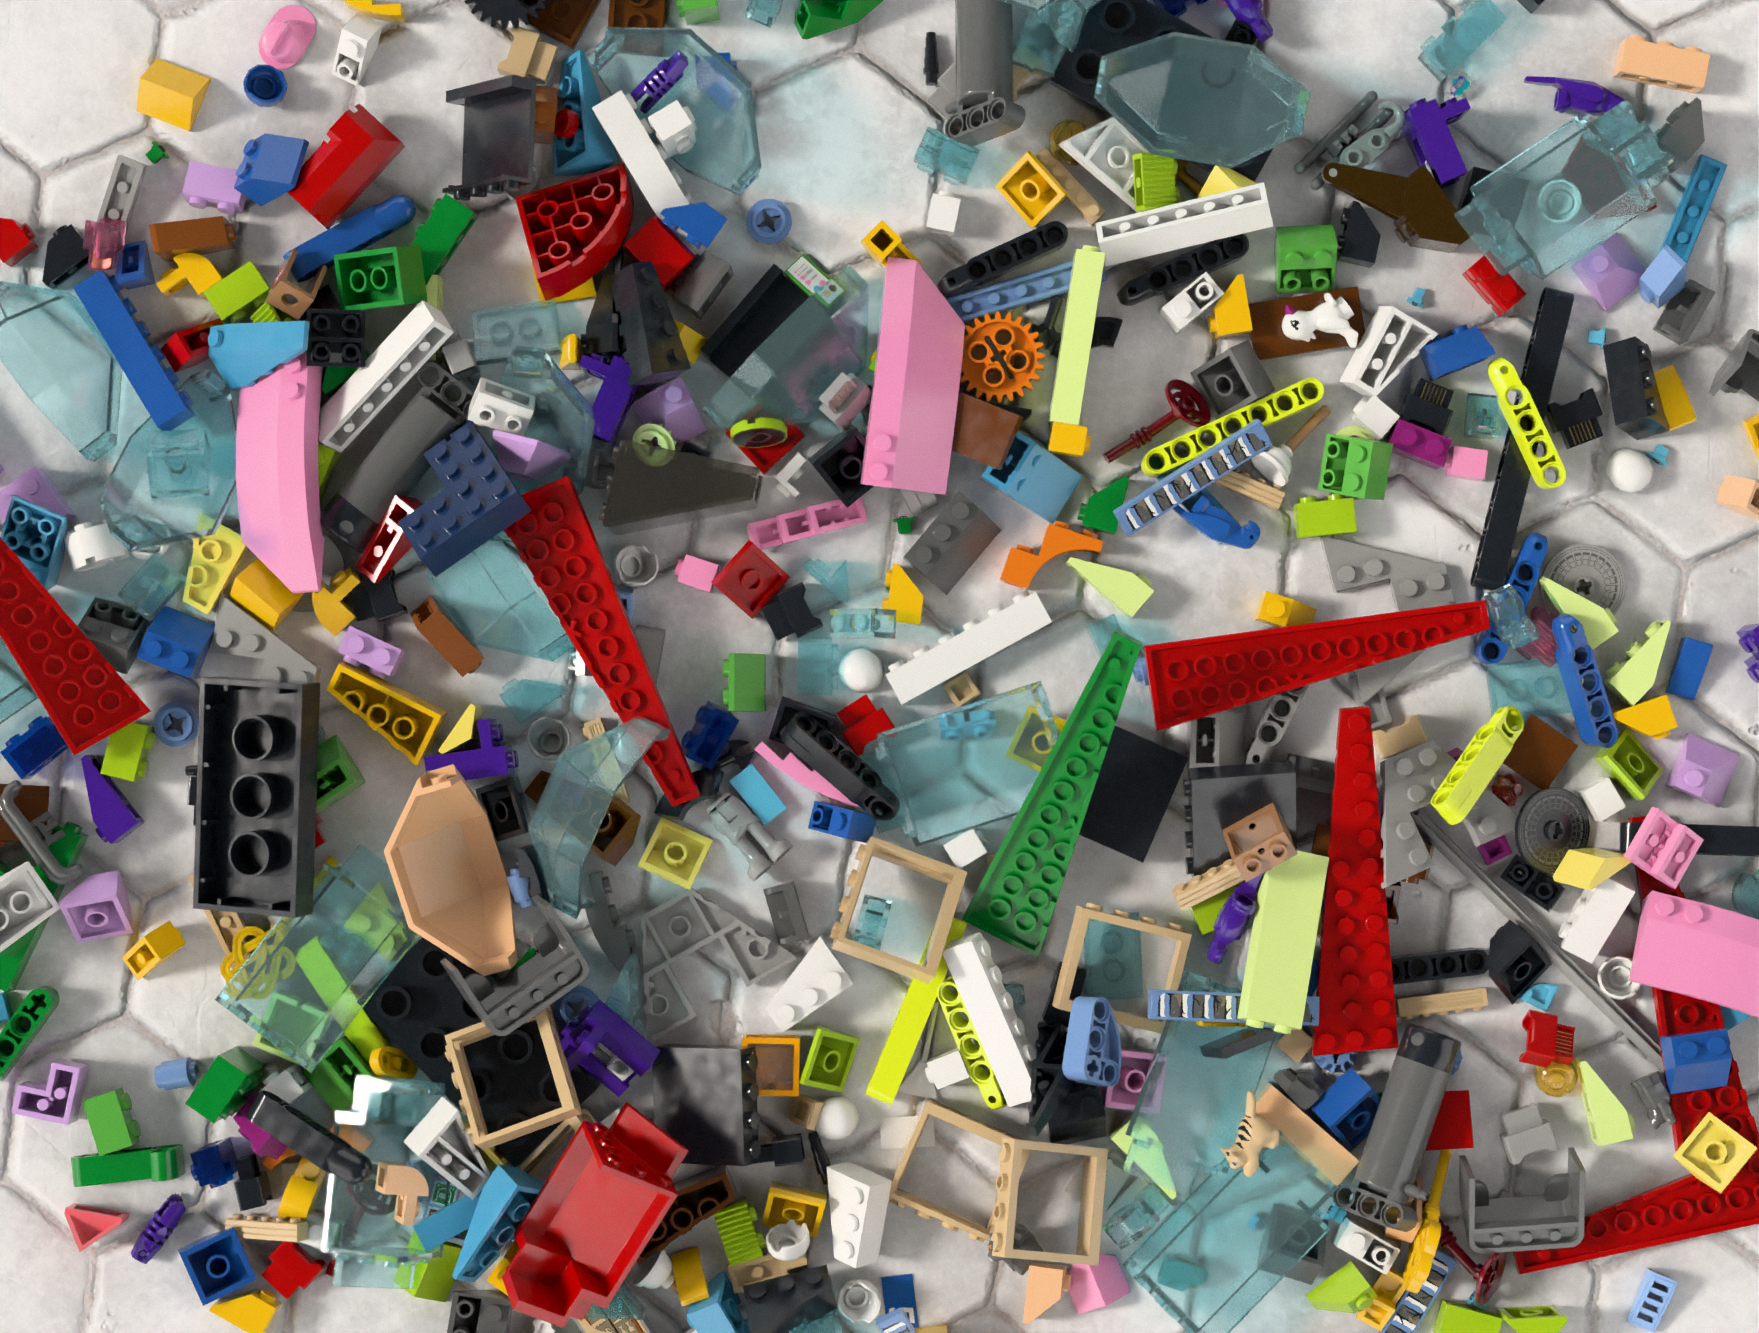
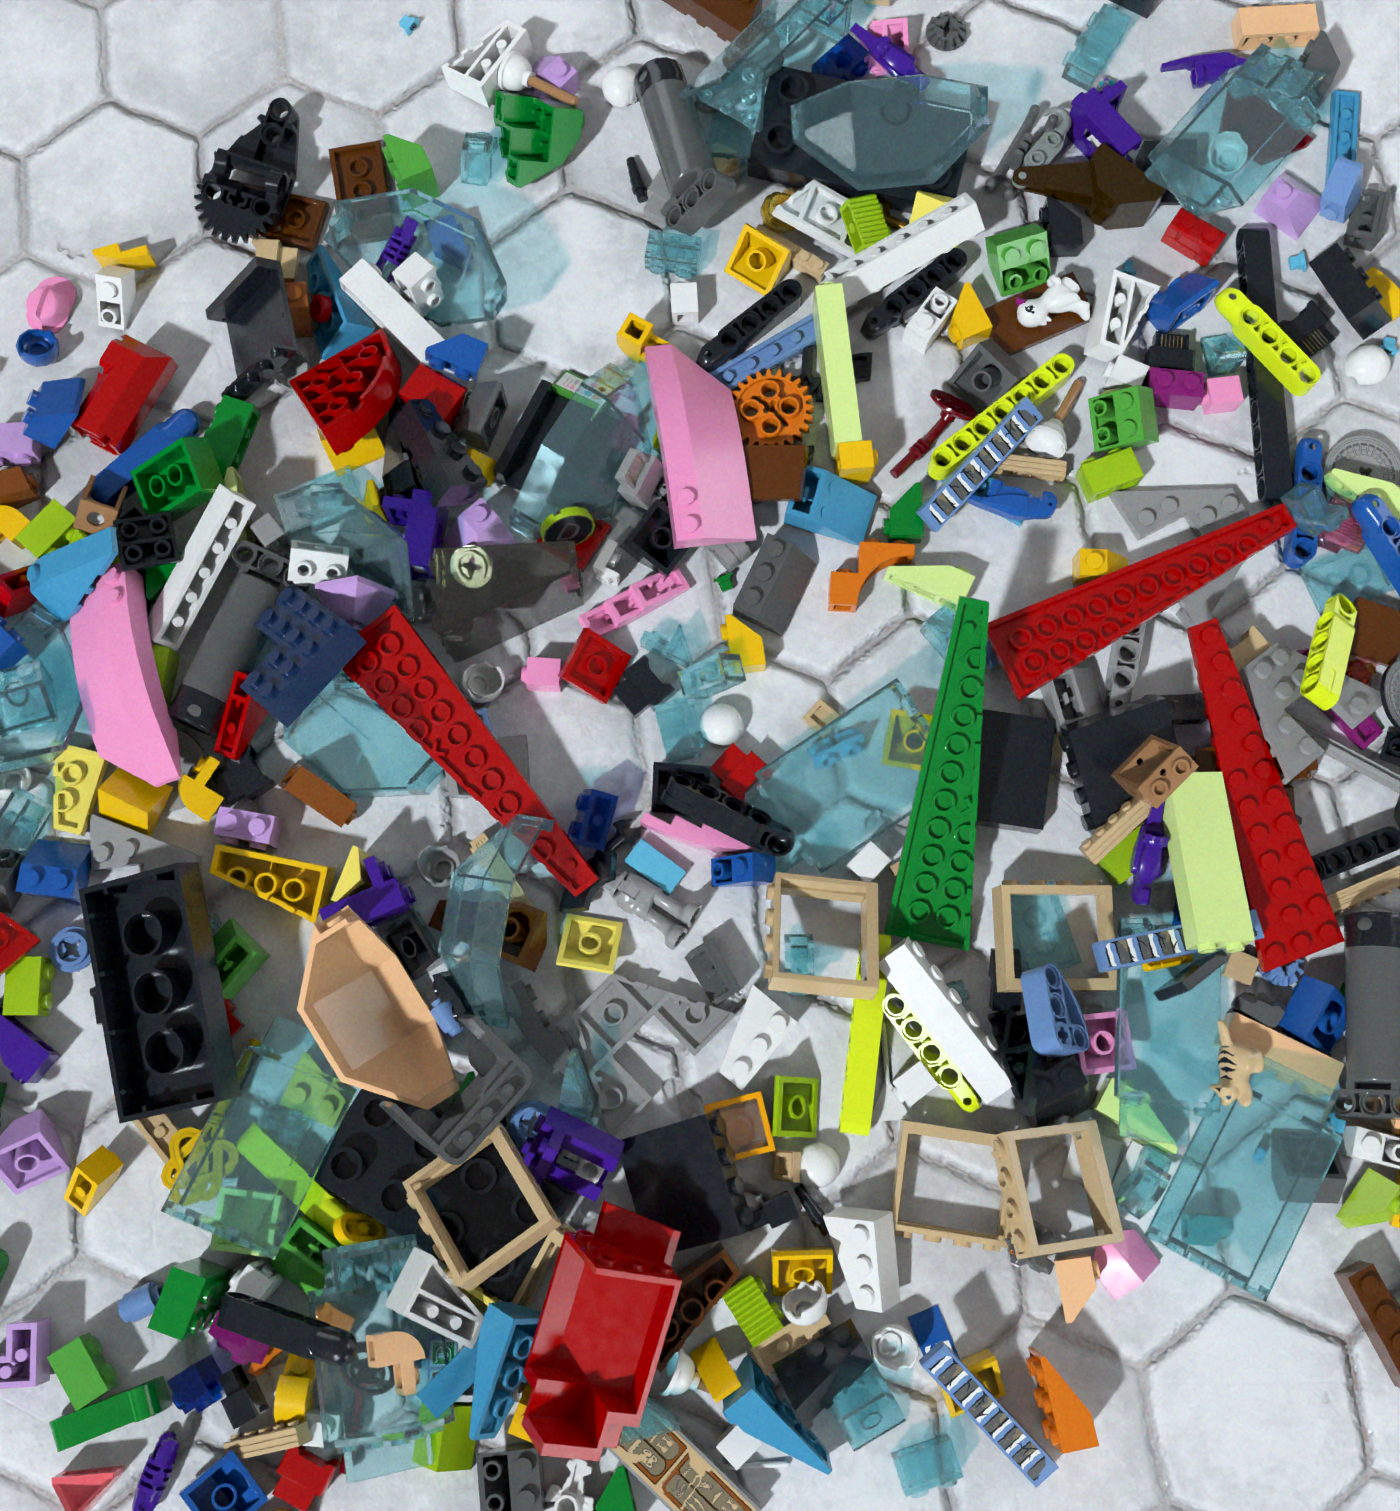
camera: 10 degrees left, 10 degrees down
(528, 697) = (412, 830): clear light blue slope -> none
(746, 682) = (616, 761): bright green slope -> none
(774, 209) = (529, 338): medium blue gear -> none
(897, 1131) = (881, 1161): white sticker -> none
(967, 648) = (816, 676): white brick -> none

